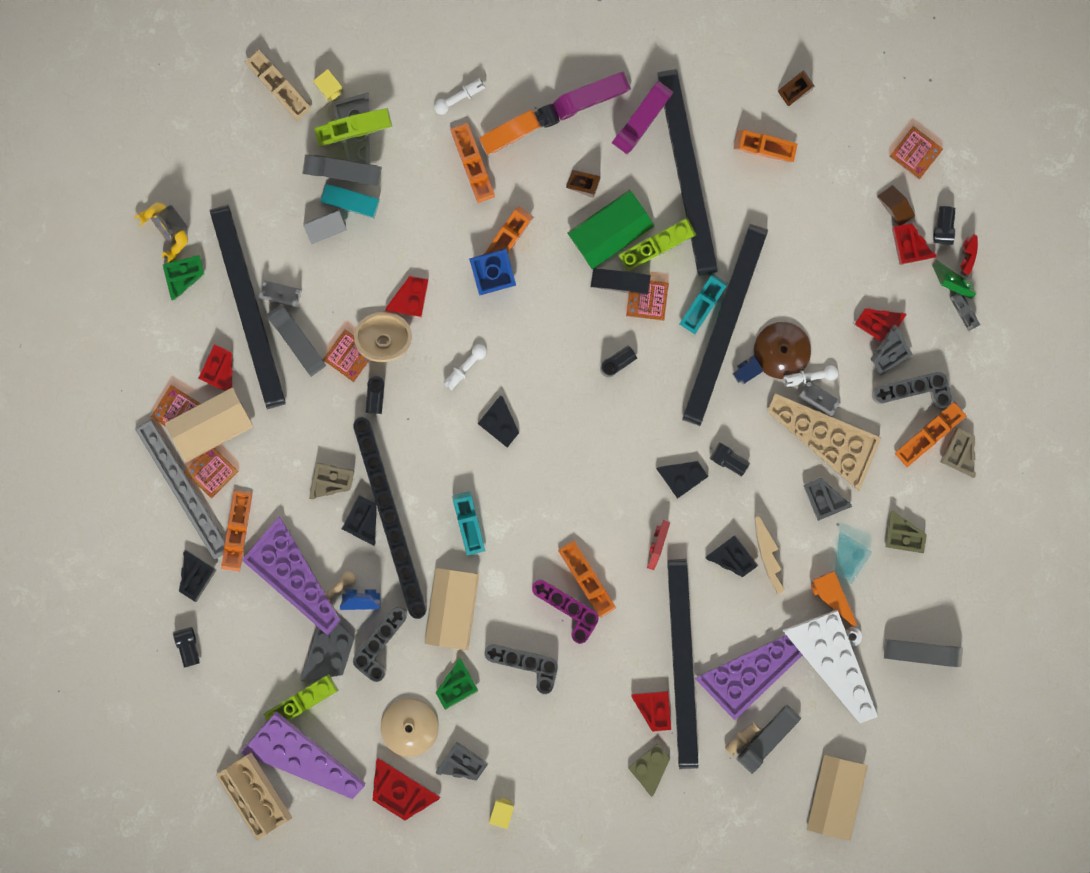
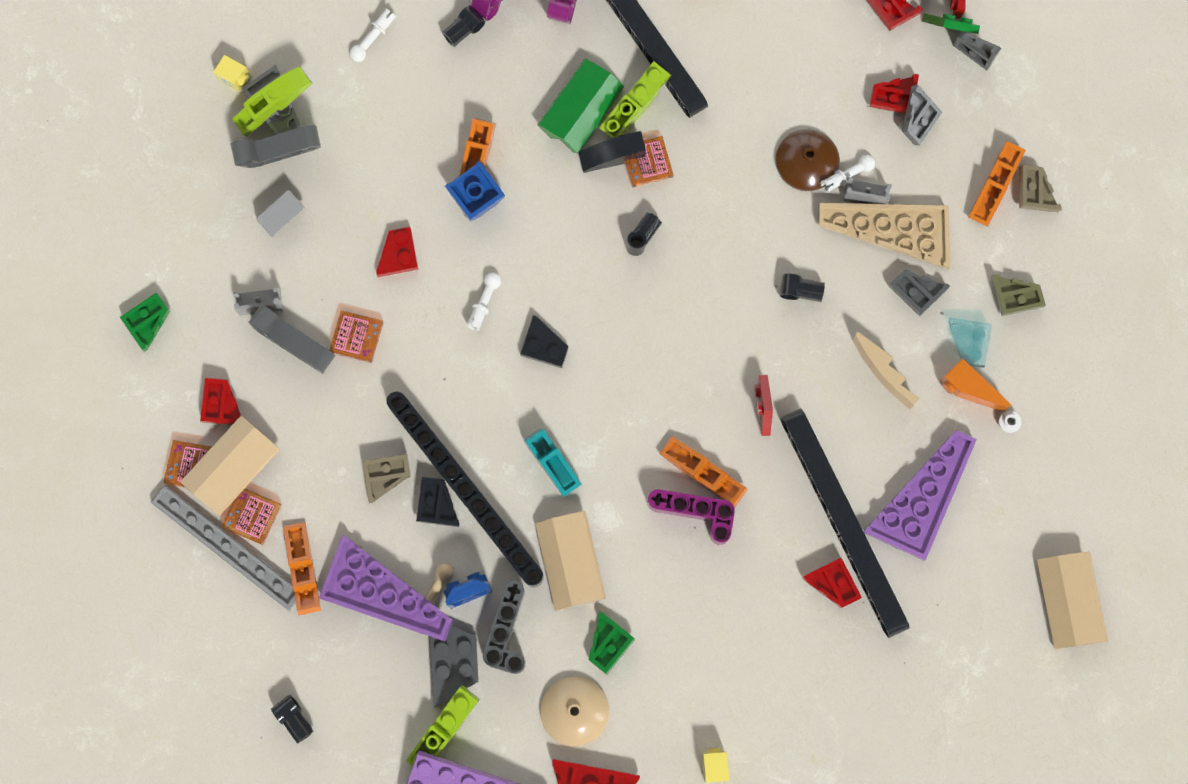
camera: 20 degrees left, 10 degrees down
(170, 226) = (112, 272): torso -> none
(195, 576) = (273, 636): black wing -> none
(247, 307) = (228, 328): black beam -> none
(277, 85) = (179, 93): tan slope -> none
(350, 201) = (298, 178): teal slope -> none
(374, 400) = (399, 367): black piece -> none
(379, 329) = (384, 300): tan dish -> none
(462, 763) = (649, 727): dark grey wing -> none
(472, 162) = (411, 94): orange slope -> none
(509, 132) = (437, 46): orange slope -> none
(520, 664) = (669, 591): dark grey beam -> none
(583, 183) = (535, 70): reddish brown slope -> none
(650, 768) = (857, 650): olive wing -> none
(682, 476) = (759, 325): black wing -> none
(703, 303) = (707, 143): teal slope -> none
(725, 324) = (738, 157): black beam -> none
(733, 557) = (849, 387): black wing -> none
(742, 738) = (943, 577): tan pin -> none
(747, 371) = (781, 191): dark blue brick -> none
(768, 739) = (964, 583): dark grey beam -> none
(831, 655) = (999, 448): white wing -> none
(923, 653) = (1093, 407): dark grey beam -> none
(928, 386) = (956, 147): dark grey beam -> none

